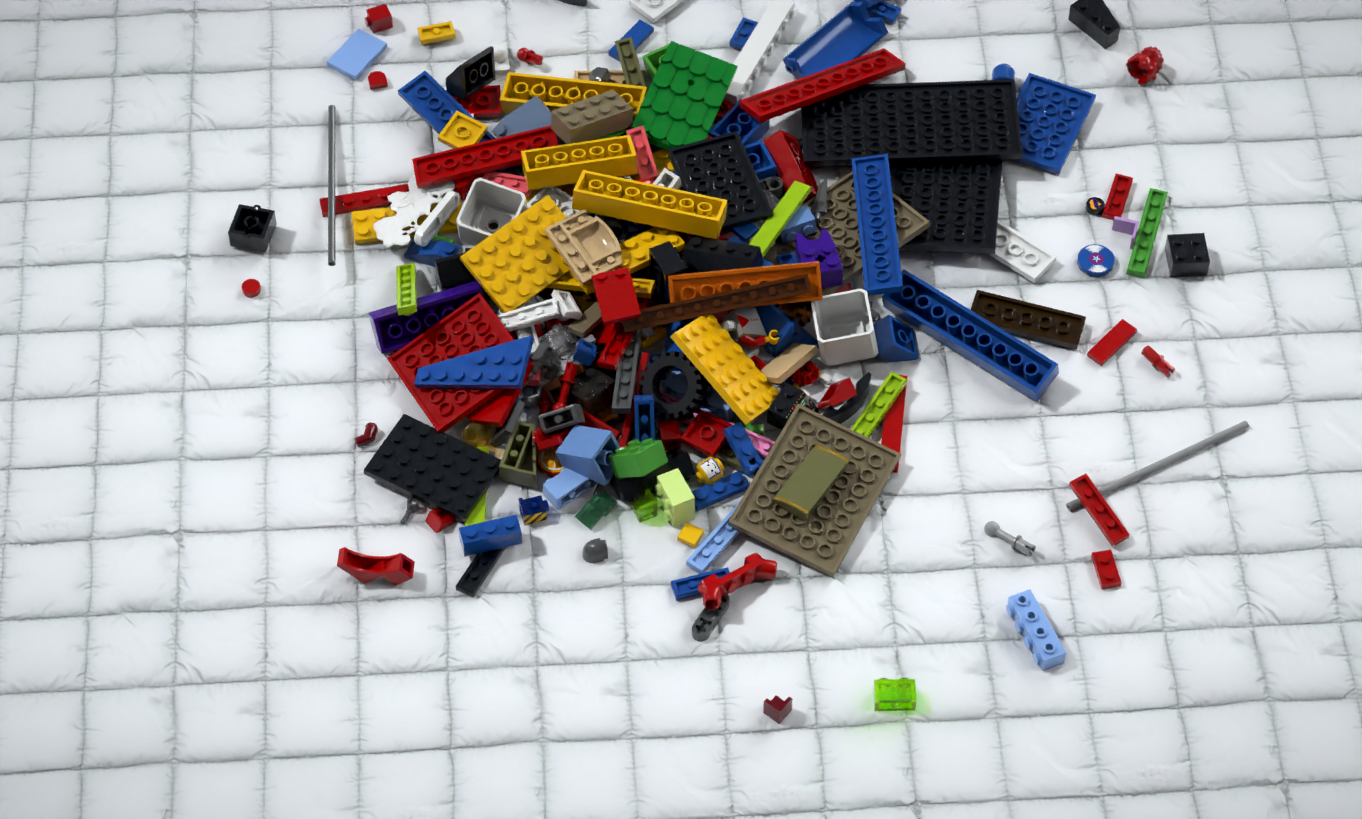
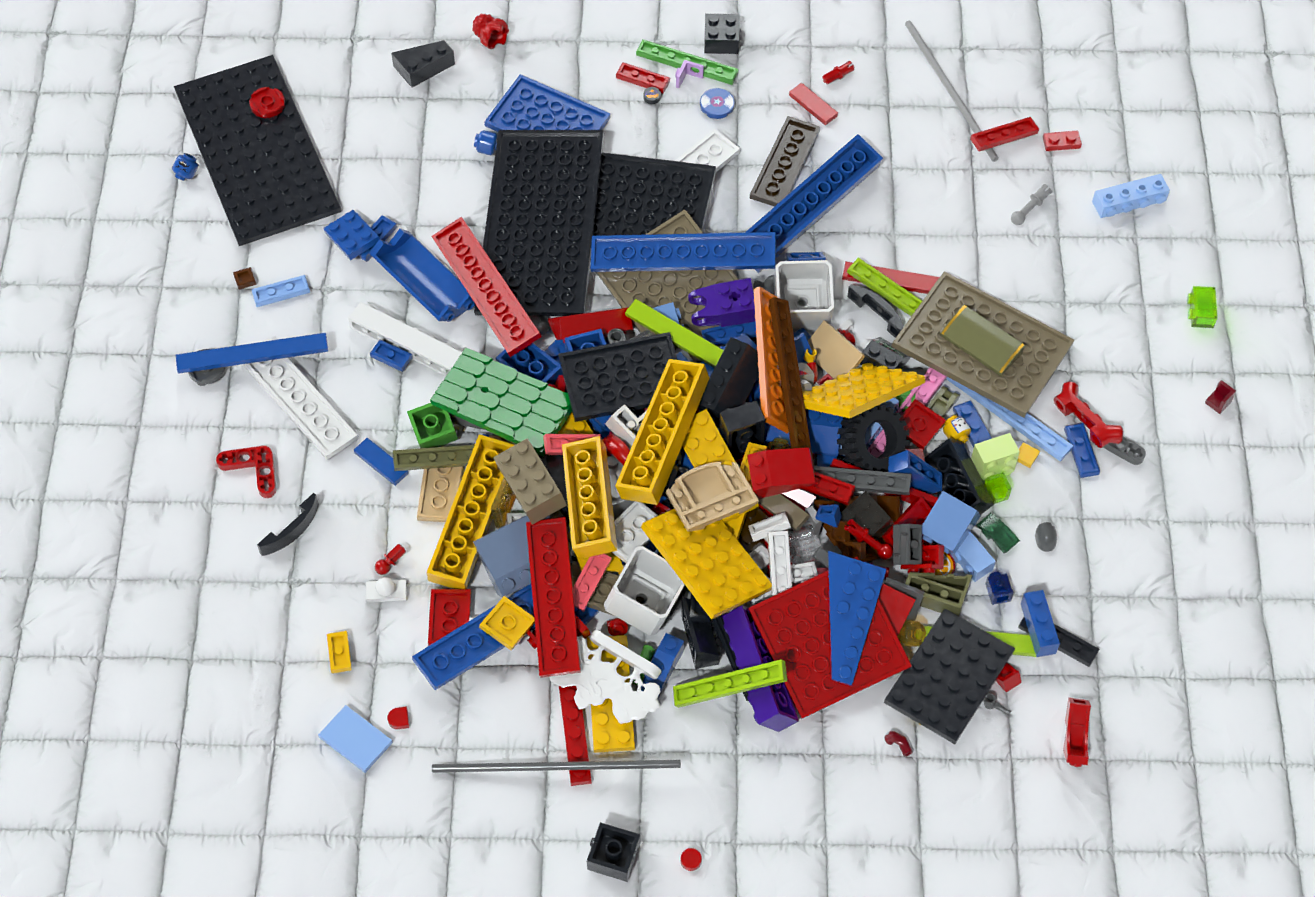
camera: 85 degrees left, 5 degrees up
(379, 18) = (308, 711): red brick -> none
(472, 75) = (422, 611): black slope -> none
(600, 74) = (440, 490): dark grey piece -> none
(638, 458) = (962, 477): bright green brick -> none
(743, 448) = (940, 394): blue plate -> none
(819, 205) = (625, 302): dark grey bar -> none
(837, 393) = (870, 308): red tile -> none

